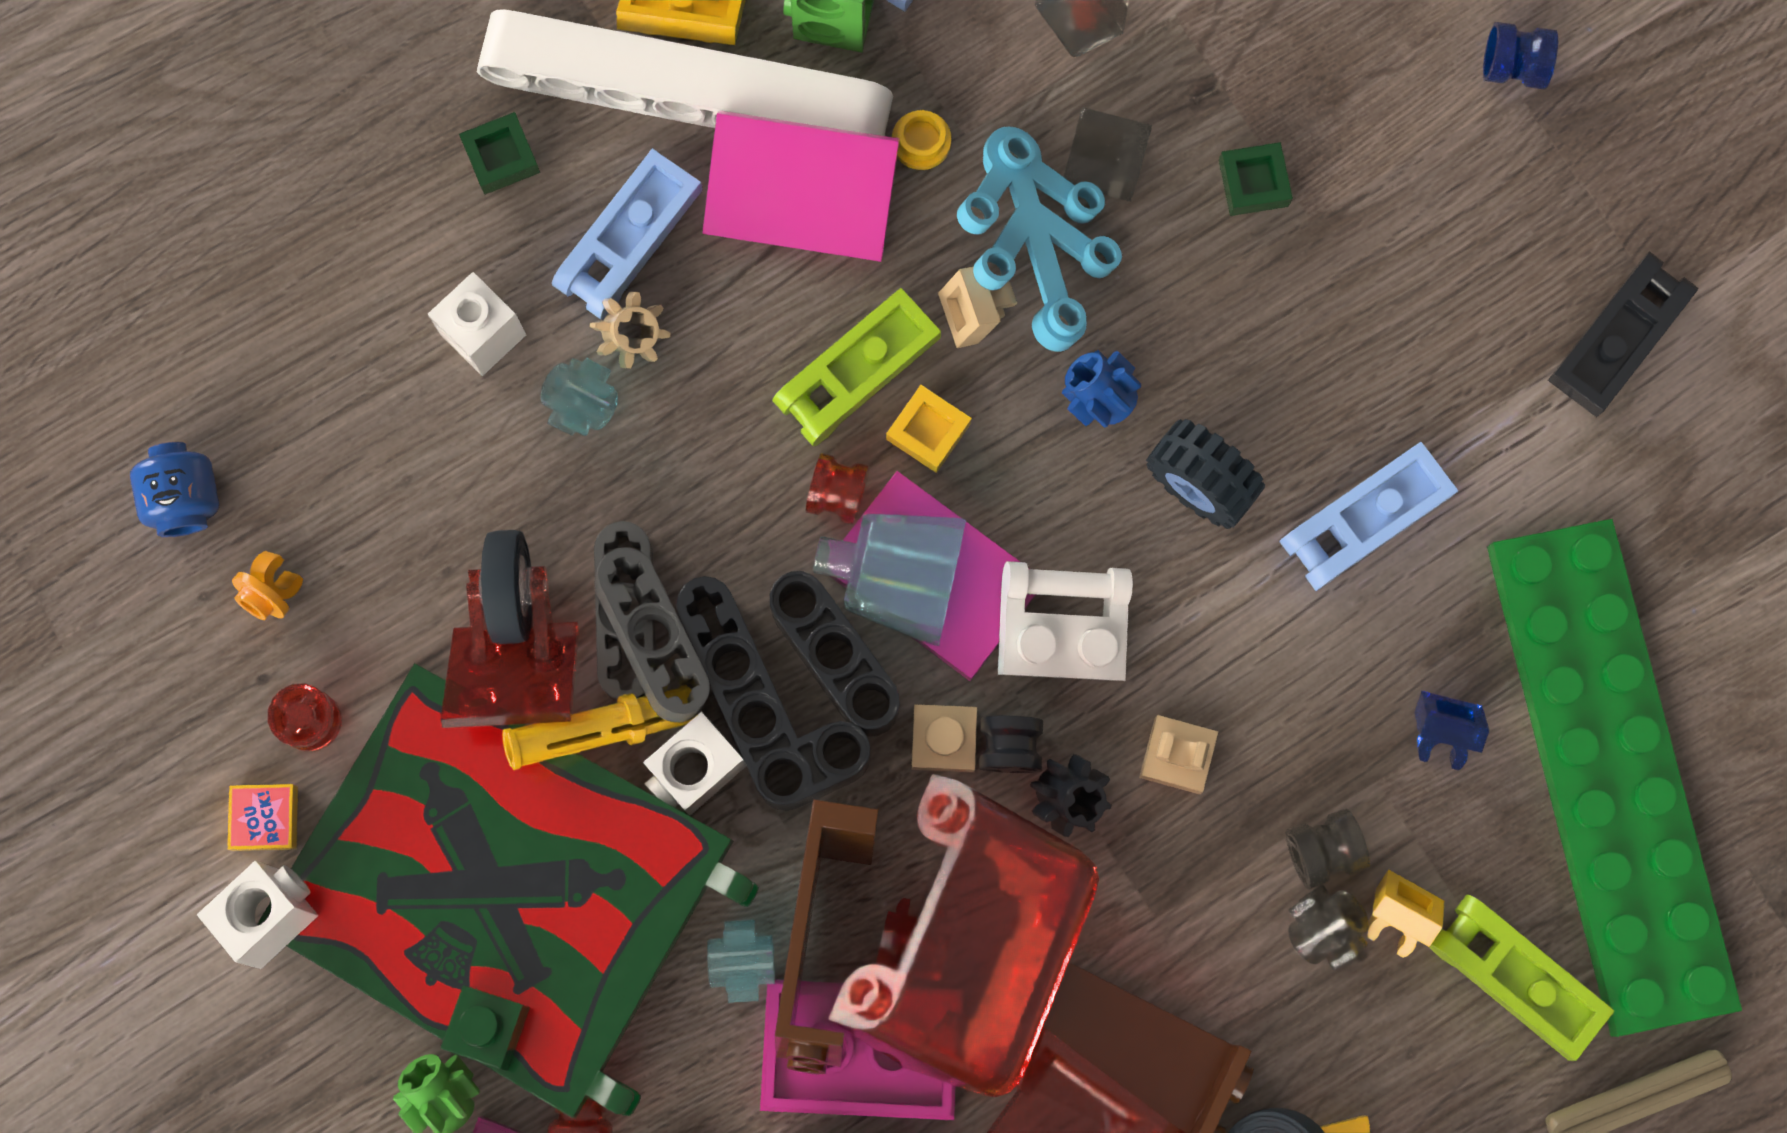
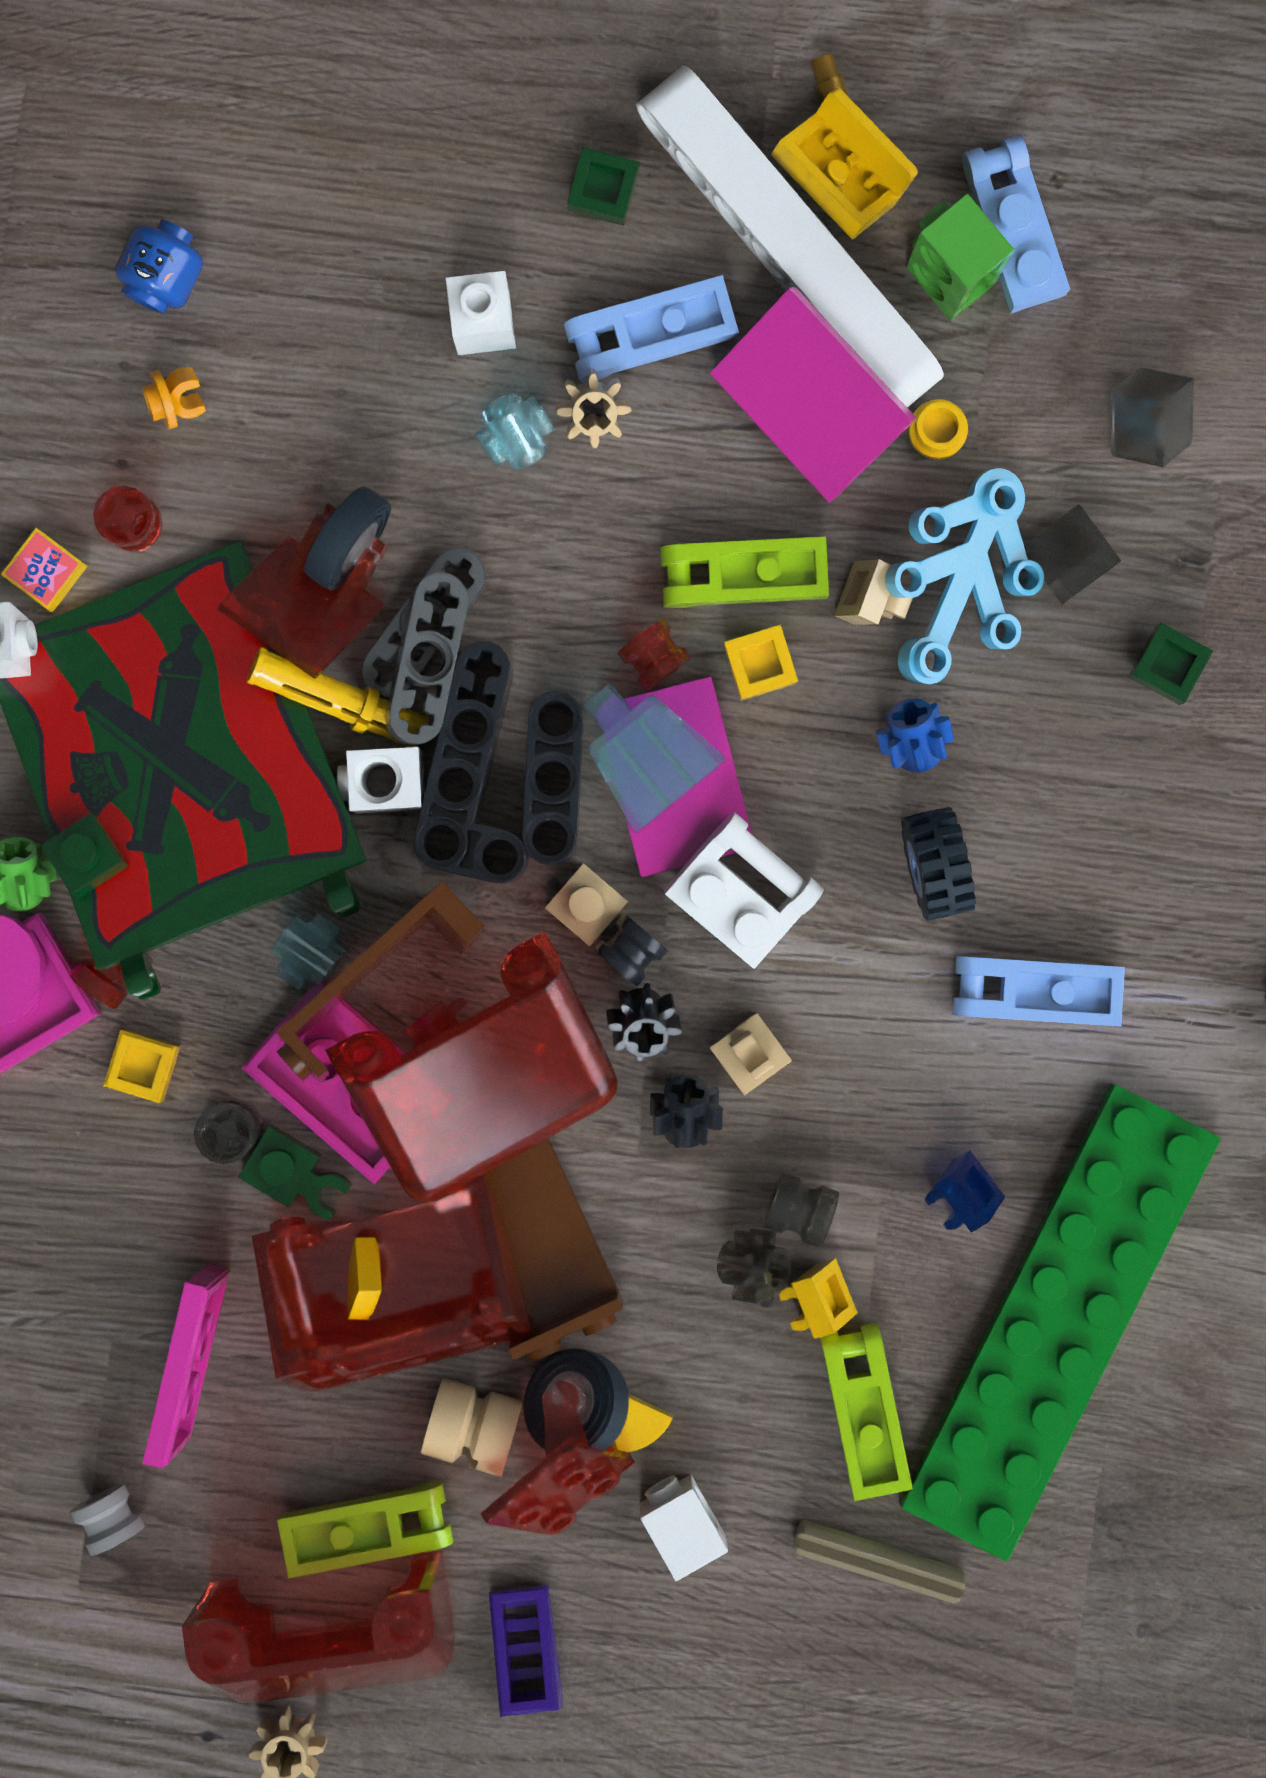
camera: 45 degrees right, 10 degrees up
(1166, 842) = (686, 1111): none -> black gear

